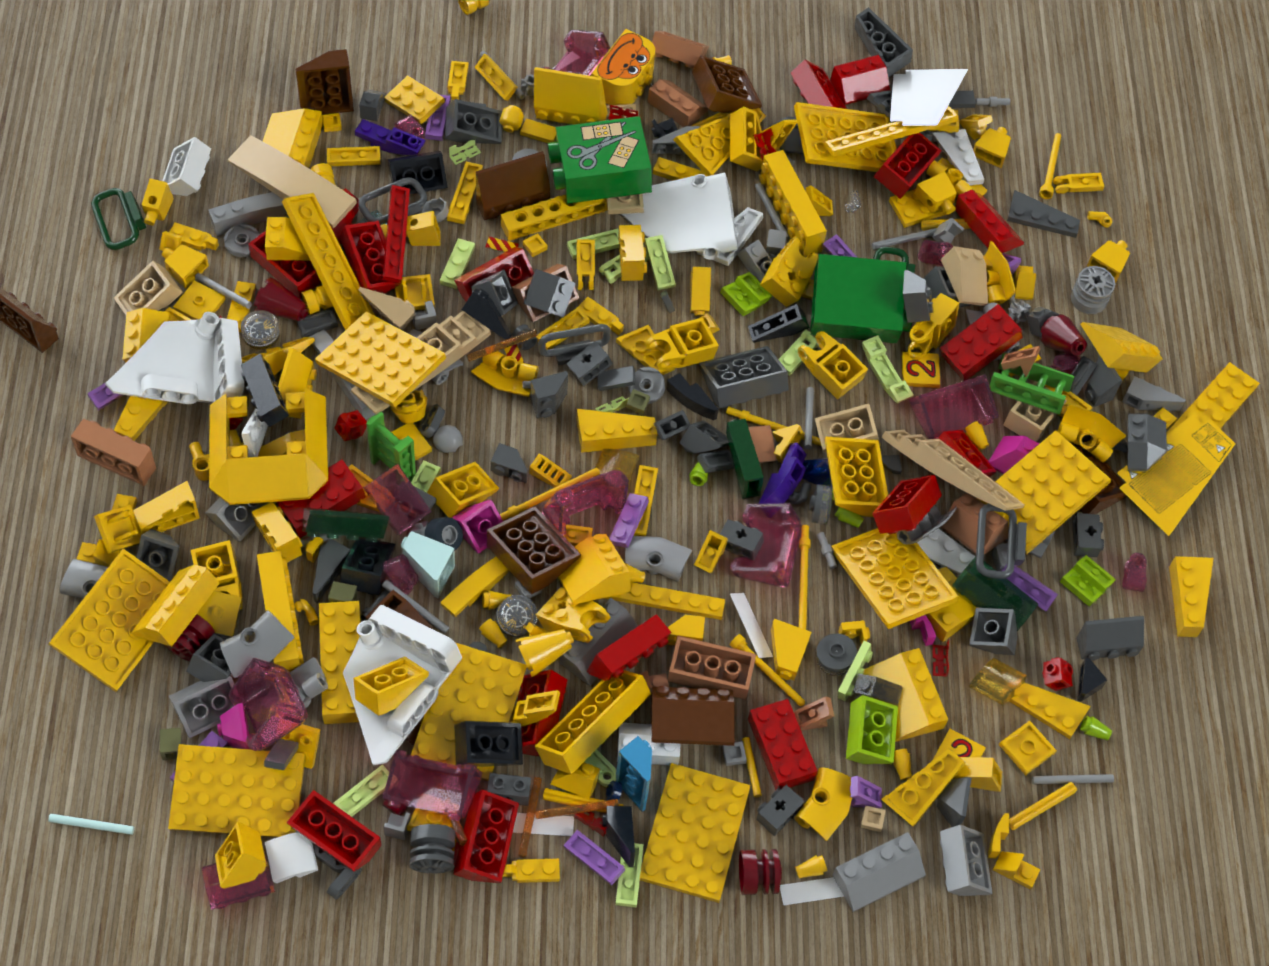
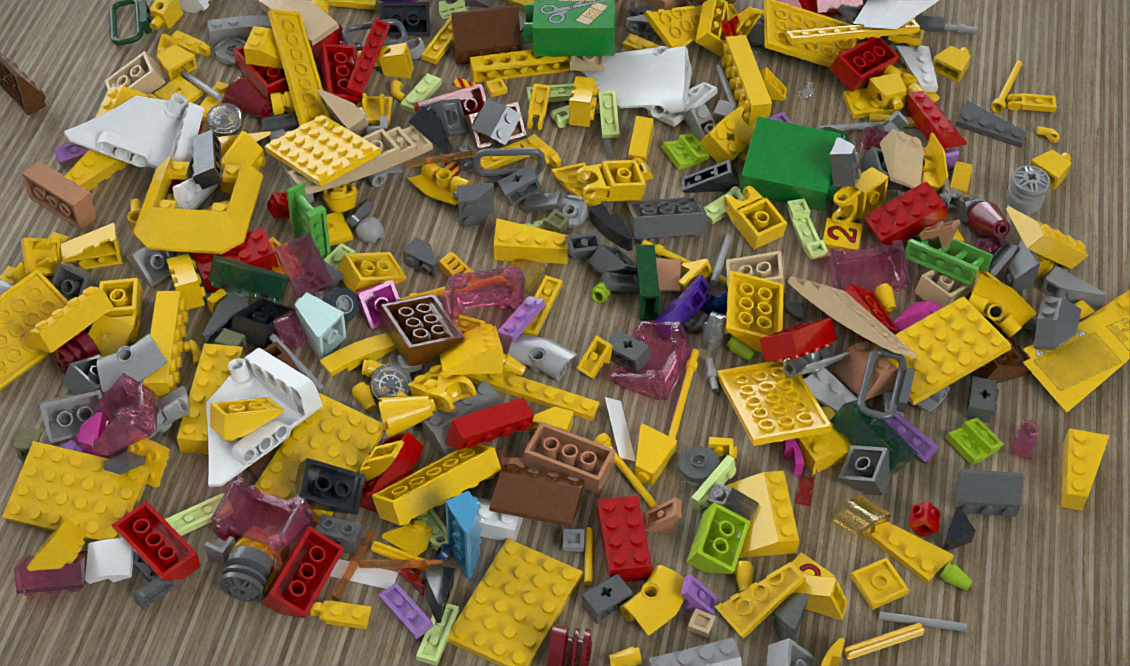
camera: 15 degrees right, 10 degrees down
(429, 264) = (395, 90): none -> yellow arm
(976, 124) = (939, 44): yellow slope -> none

